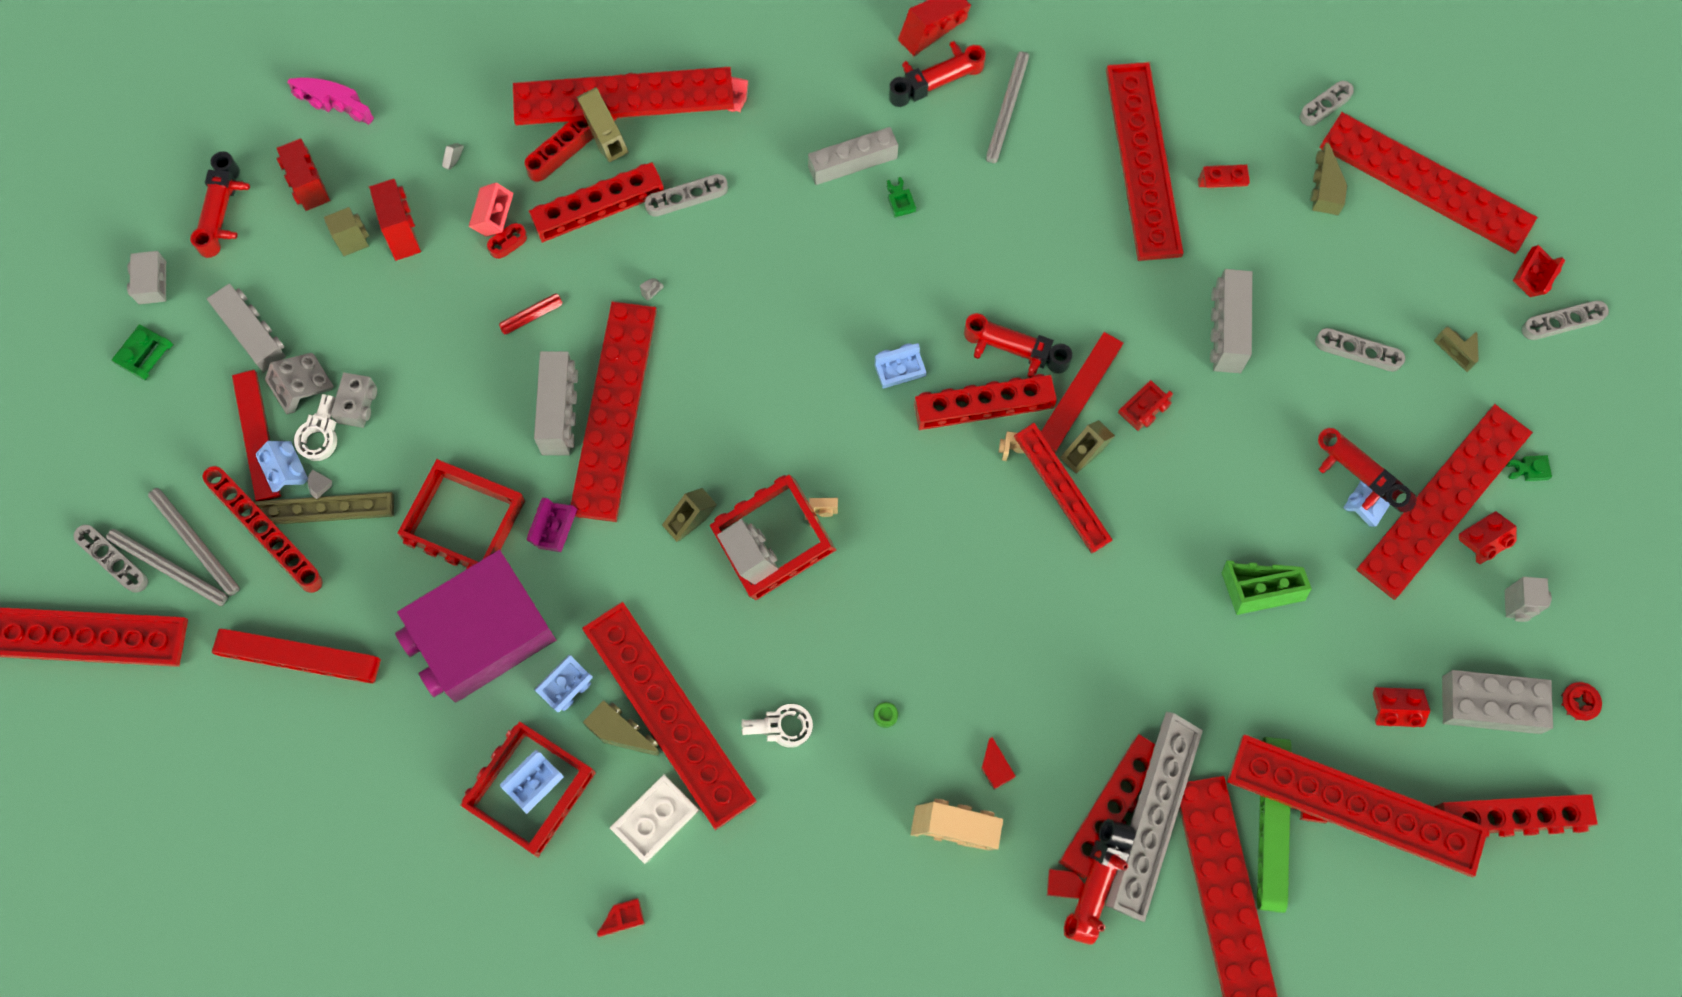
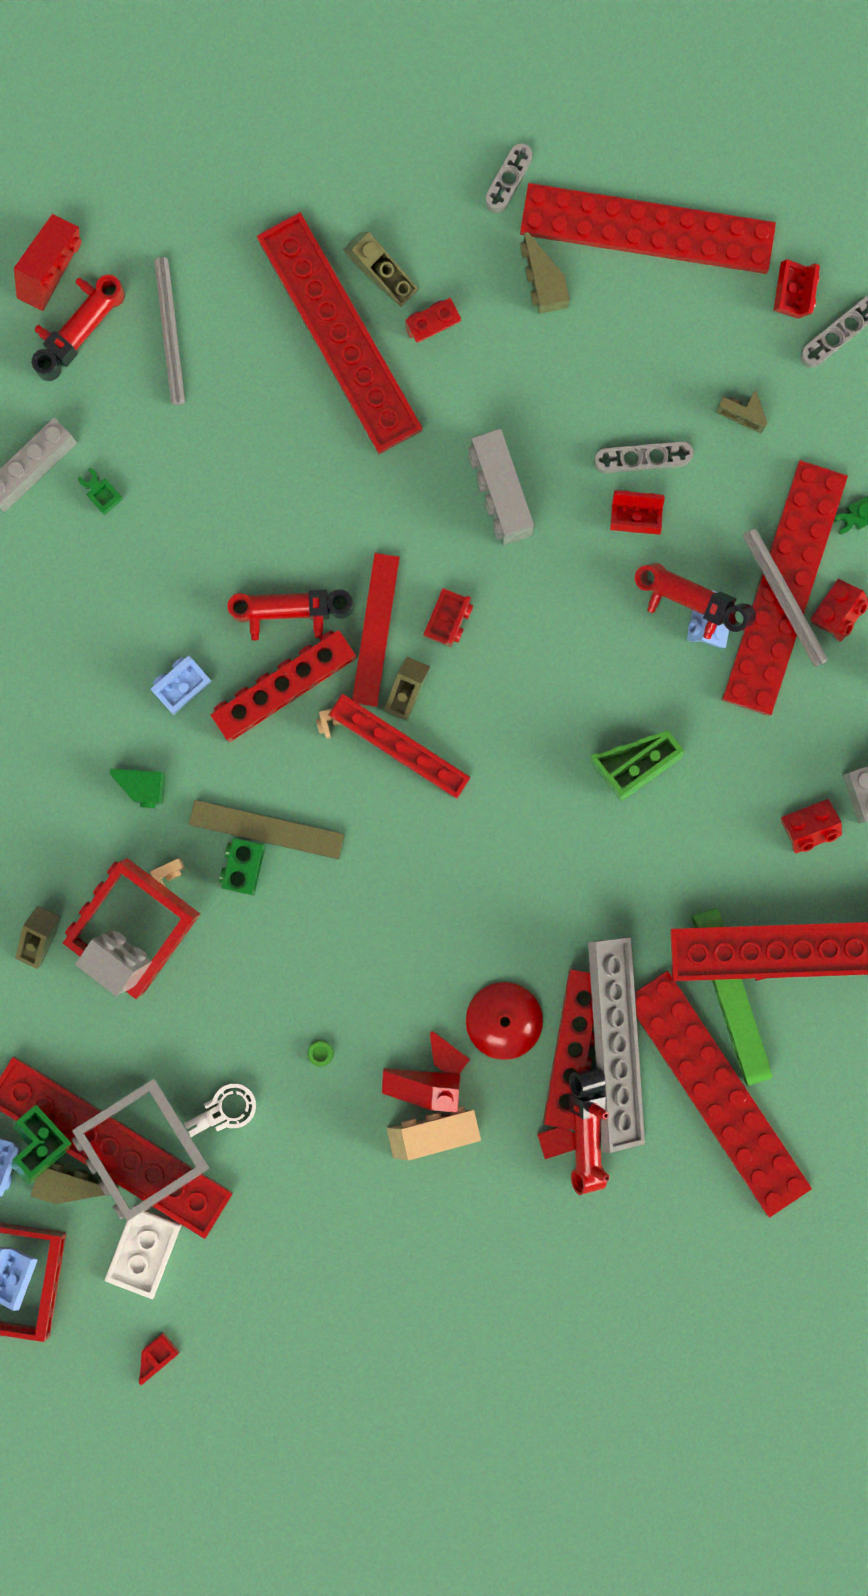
camera: 20 degrees left, 15 degrees up
(616, 678) = (44, 1143): none -> green brick
(655, 741) = (95, 1164): none -> light grey window
(832, 430) = (141, 786): none -> green slope
(892, 532) = (249, 868): none -> green brick
(920, 510) = (266, 829): none -> olive tile
(964, 781) = (423, 1088): none -> red slope
(1048, 770) = (500, 1001): none -> red dish
(1196, 125) = (380, 267): none -> olive slope
(1339, 387) = (637, 512): none -> red bracket
(1445, 505) = (785, 597): none -> light grey axle

